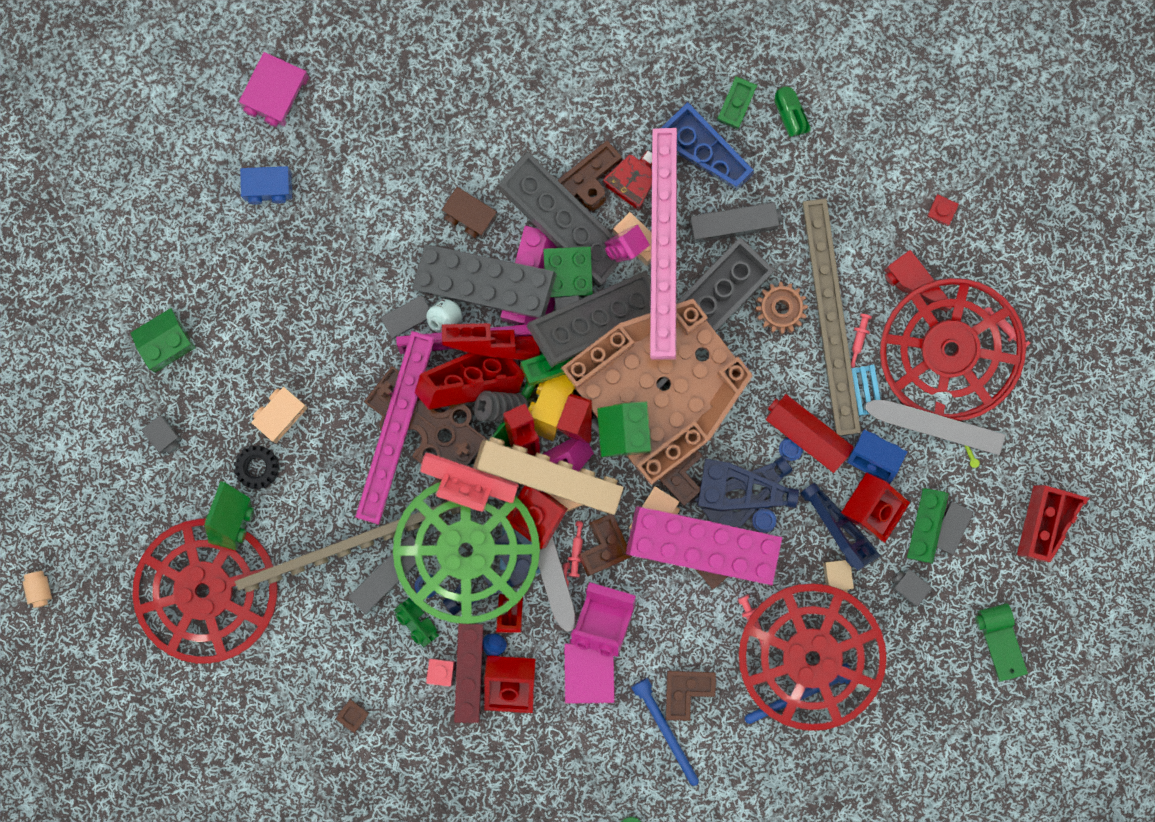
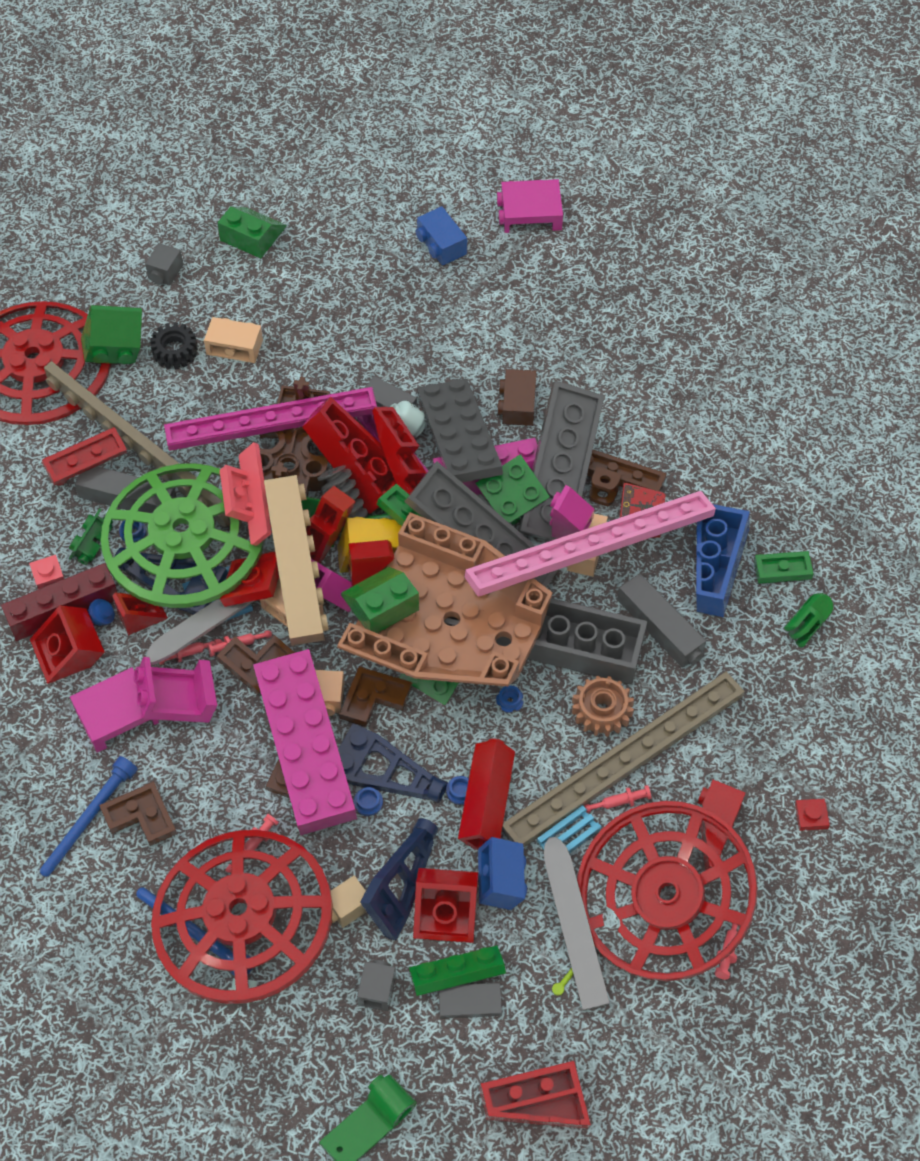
camera: 60 degrees right, 25 degrees down
(345, 595) = (84, 456): none -> red piece
(714, 482) = (381, 727): dark blue plate -> none

